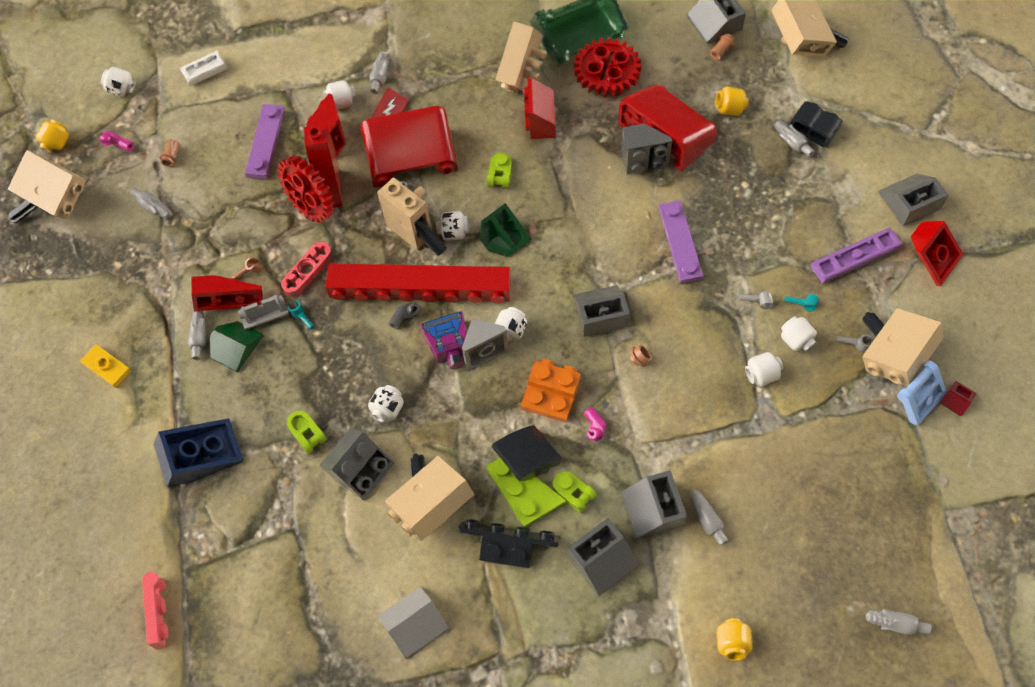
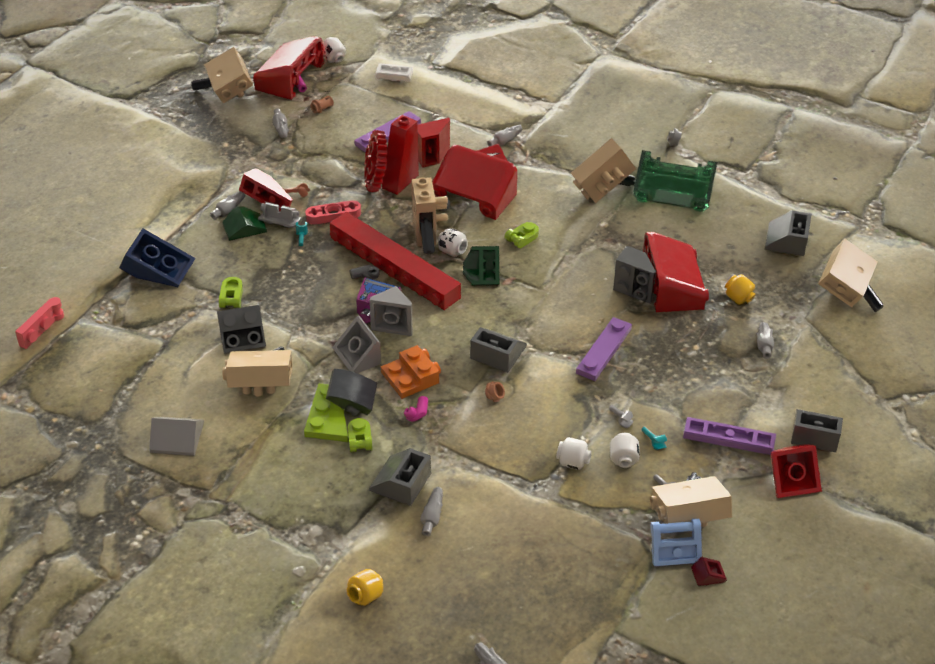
camera: 35 degrees right, 20 degrees down
(52, 136) = (261, 55): yellow head -> none
(94, 132) = (283, 68): none -> red windscreen
(105, 366) = (158, 188): yellow plate -> none
(341, 93) = (462, 131): white head -> none
(386, 403) = (295, 308): white head -> none
(483, 402) = (358, 347): none -> light grey slope
(505, 544) = (280, 433): black bracket -> none
(514, 322) = (425, 317): white head -> none
(539, 110) = (587, 212): red slope -> none
(602, 556) = (332, 477): dark grey slope -> none
(620, 73) = (670, 218): red gear -> none
(726, 42) = (774, 256): nougat pin -> none
(816, 124) = (792, 340): black brick -> none

